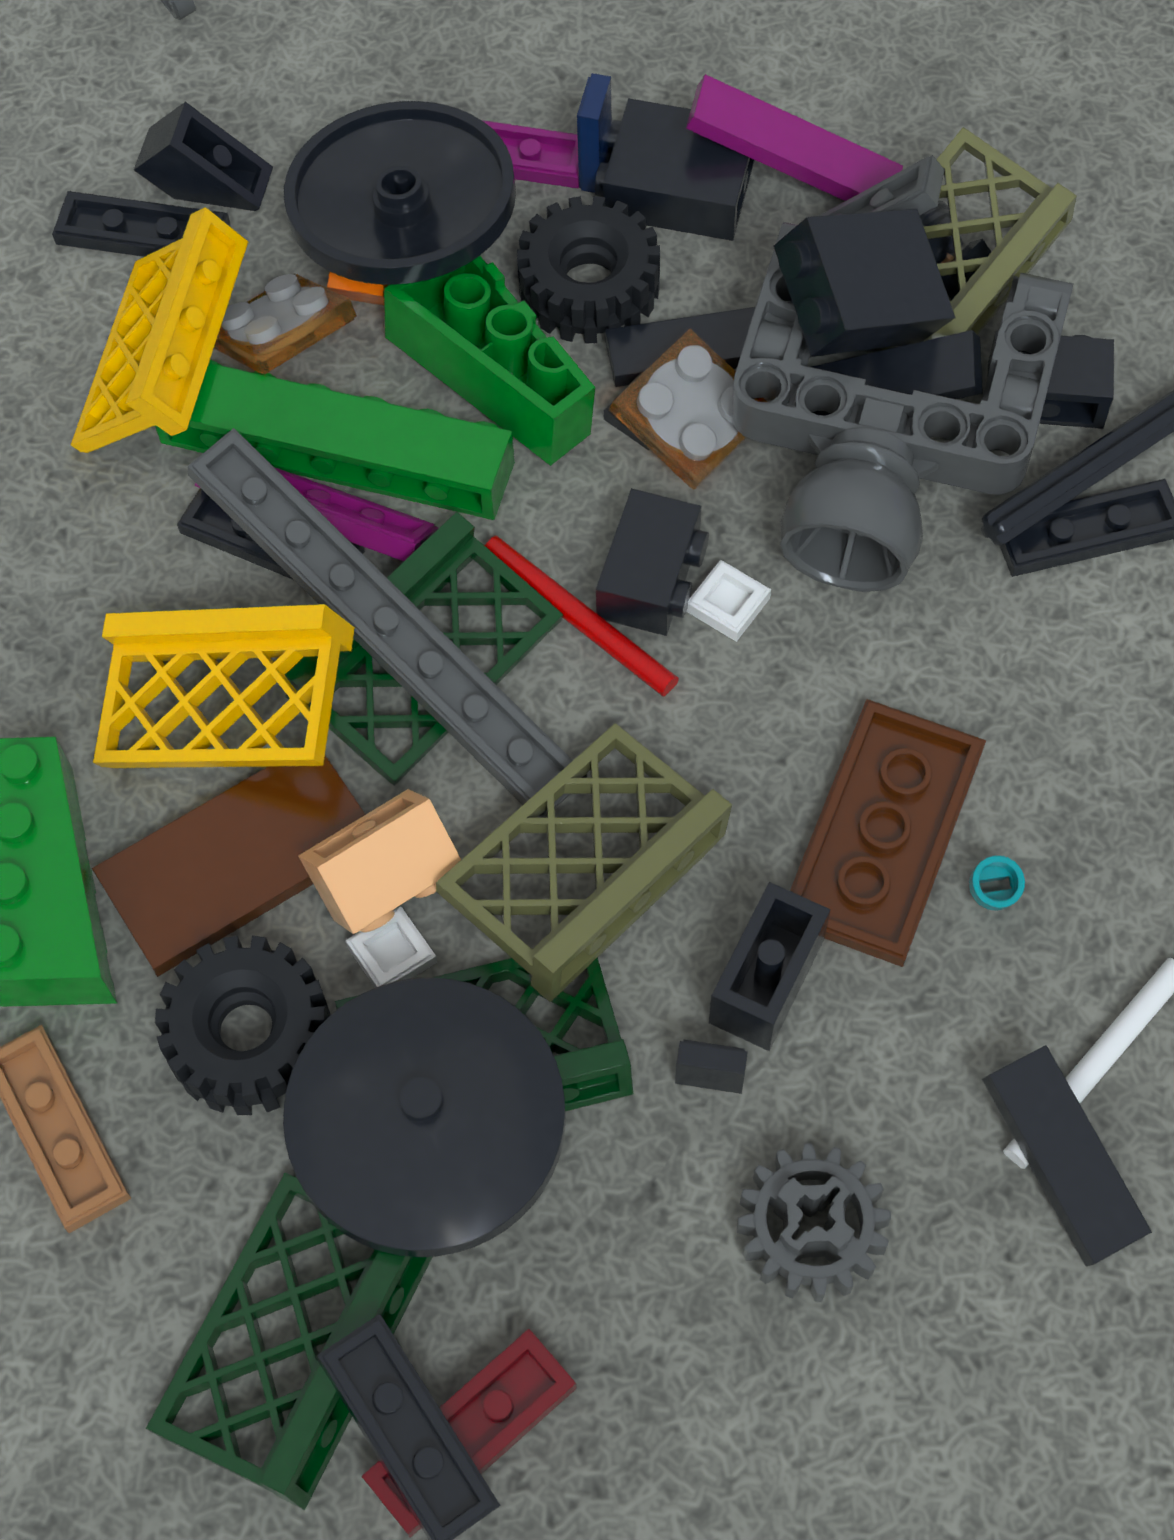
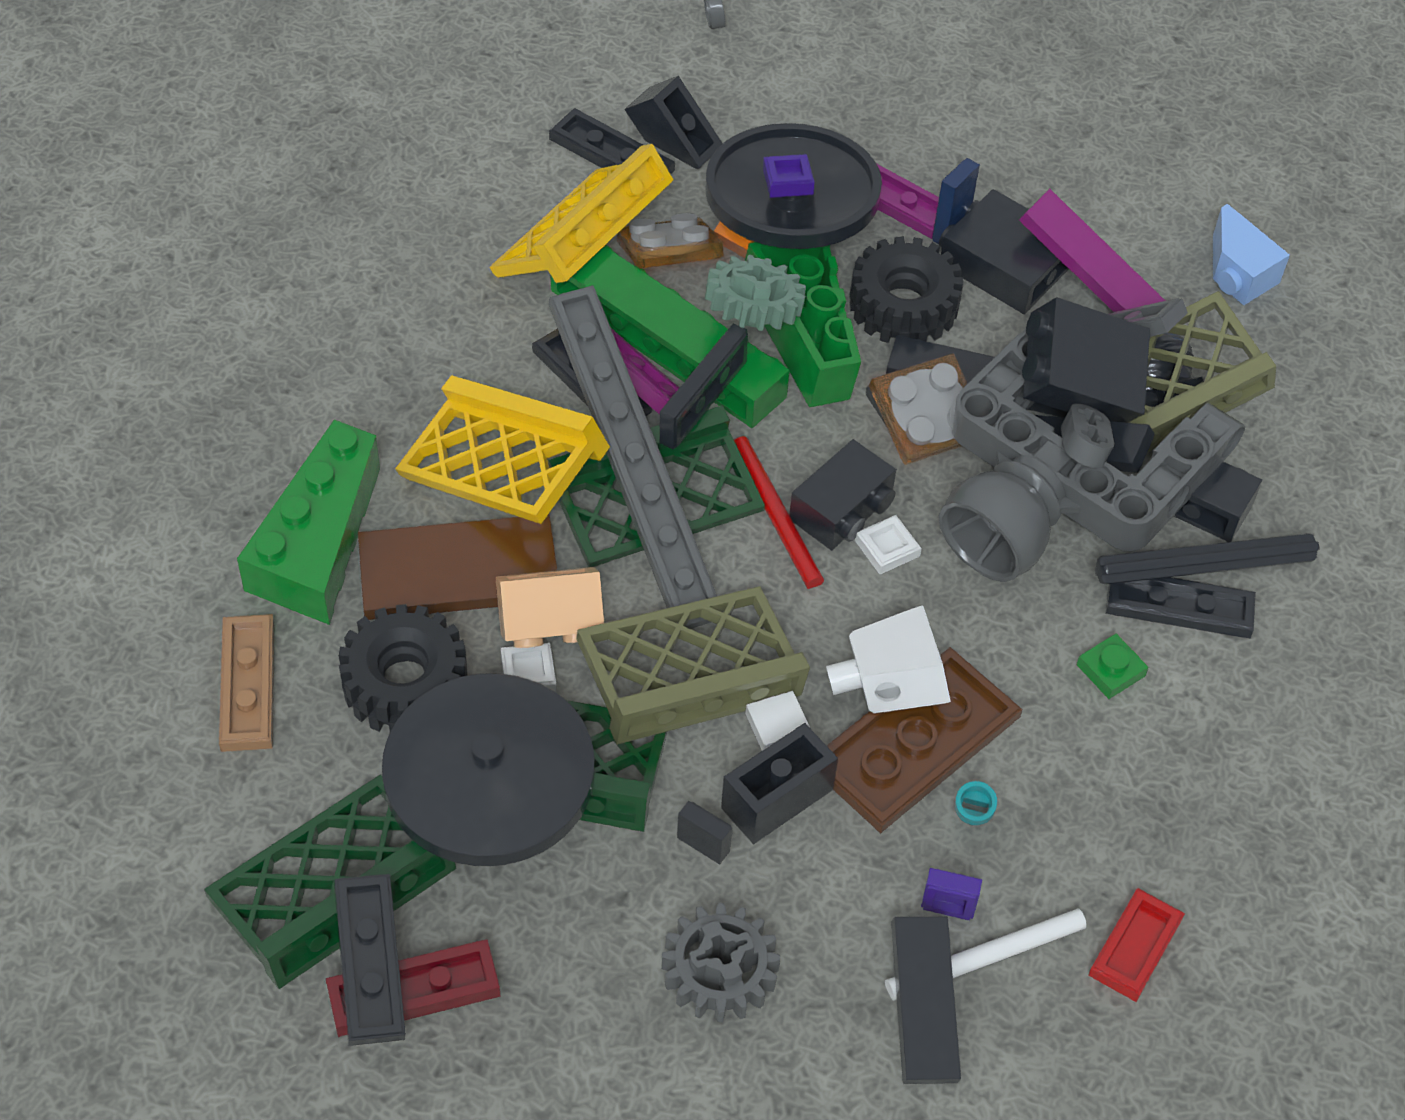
camera: 20 degrees right, 10 degrees down
(393, 183) = (788, 175): none -> dark purple tile
(428, 500) = (703, 386): none -> black tile
(432, 353) = (755, 292): none -> sand green gear
(719, 883) = (774, 718): none -> white tile
(823, 753) = (893, 664): none -> white torso
(911, 374) = (1087, 436): none -> dark grey beam
(945, 67) = (1244, 257): none -> light blue slope
(1028, 1010) = (951, 894): none -> dark purple tile
(1055, 639) = (1112, 666): none -> green plate

